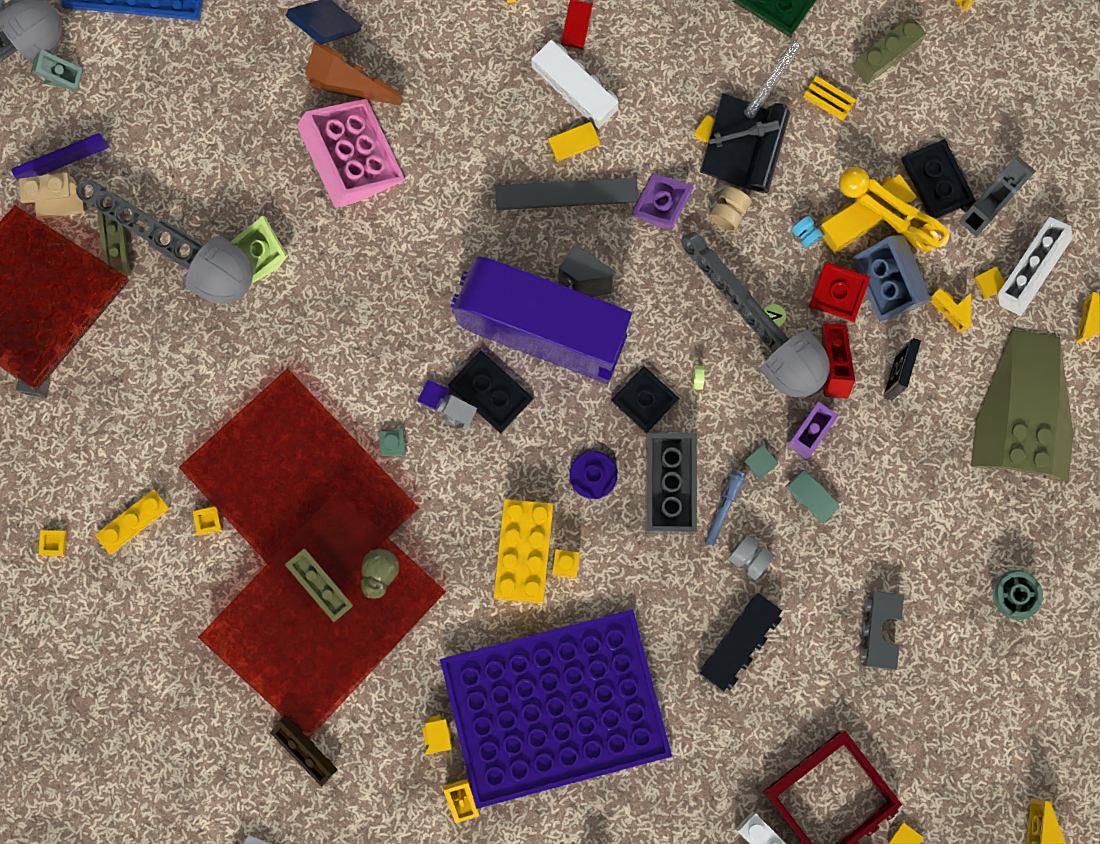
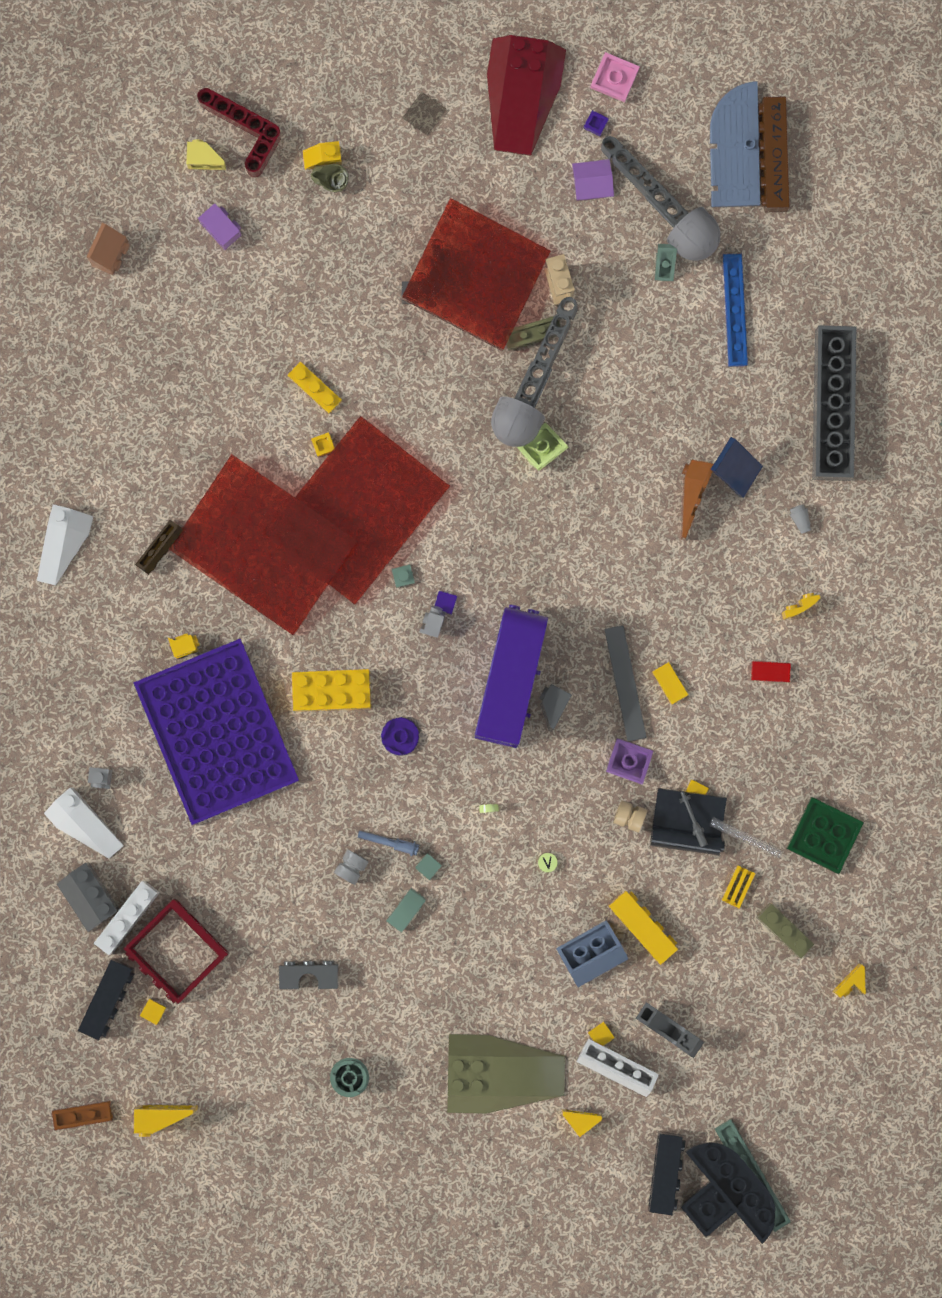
camera: 80 degrees right, 5 degrees up
(52, 543) = (290, 330): yellow tile -> none
(61, 157) = (594, 278): dark purple tile -> none
(319, 585) = (282, 538): olive plate -> none
(349, 151) = (633, 505): bright pink slope -> none
(378, 571) = (299, 581): olive hair -> none
(461, 800) = (138, 670): yellow slope -> none
(491, 391) = (454, 646): black tile -> none
(565, 564) = (326, 724): yellow brick -> none
(575, 84) = (717, 676): white brick -> none
(645, 399) = (465, 769): black tile -> none
(671, 483) = (399, 797): dark grey brick -> none
(740, 642) = (284, 866): black brick -> none
(797, 364) = (505, 883): piece -> none
(807, 232) = (620, 881): medium azure wheel -> none
(812, 430) = (457, 903): medium lavender brick -> none
(839, 291) = (575, 912): red tile -> none
(841, 372) = (517, 916): red slope -> none
(902, 369) = (513, 966): black tile -> none
(915, 226) = (661, 913): yellow piece -> none
(938, 179) = (681, 983): black tile -> none
(958, 314) = (569, 1010): yellow slope -> none

